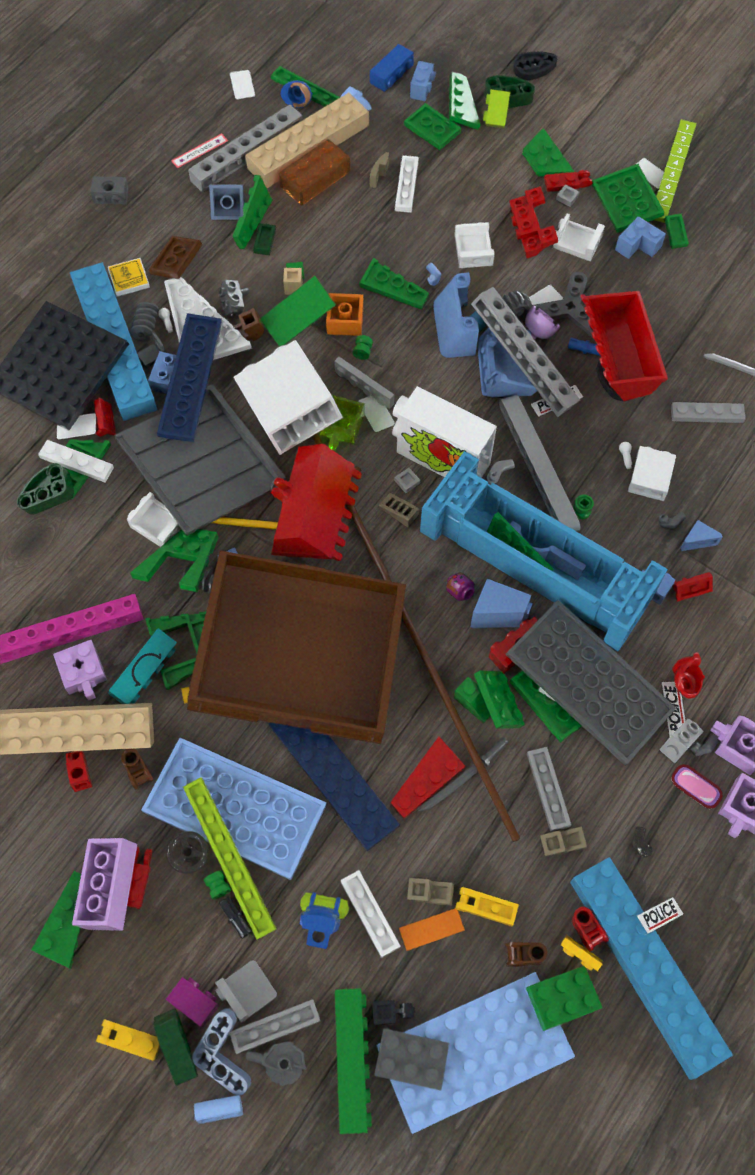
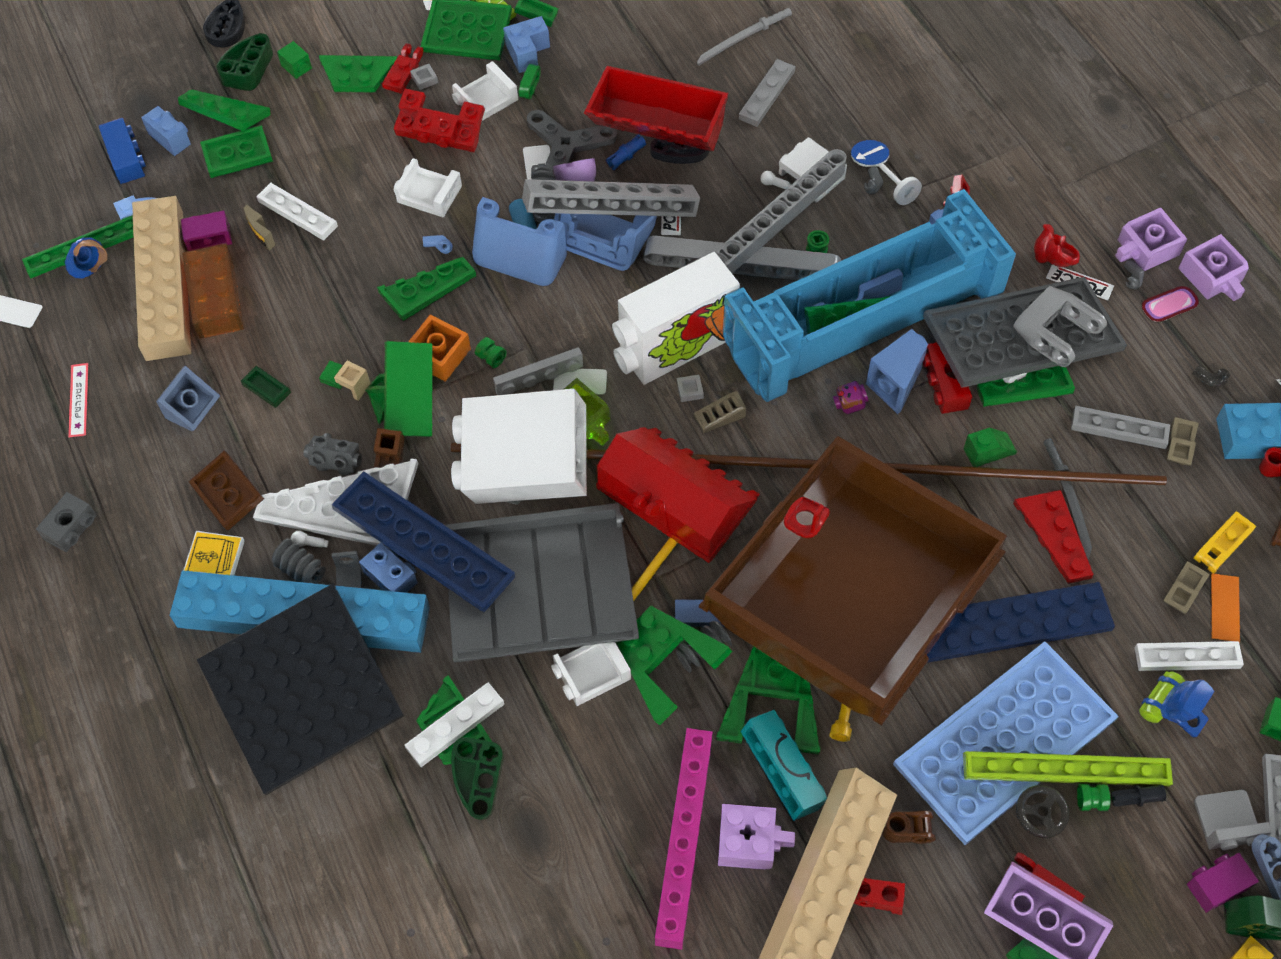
camera: 60 degrees left, 5 degrees down
(83, 426) = (407, 695): white sticker -> none
(105, 418) = (398, 666): red plate -> none
(232, 156) = (120, 347): light grey brick -> none
(252, 212) = (225, 377): green wing -> none
(310, 591) = (805, 504): none -> red piece
(358, 144) = (206, 230): none -> magenta brick
(497, 108) = (266, 79): lime brick -> none
(499, 699) = (1005, 420): green plate -> none
(528, 116) = (294, 59): none -> green brick
(593, 462) = (782, 210): none -> light grey beam
(607, 258) = (529, 81): none -> green beam
(611, 685) = (1043, 311): none -> light grey connector
(681, 740) = (1125, 290): light grey bracket -> none
(696, 508) = (874, 153): none -> piece
(701, 537) = (906, 163): medium blue slope -> none

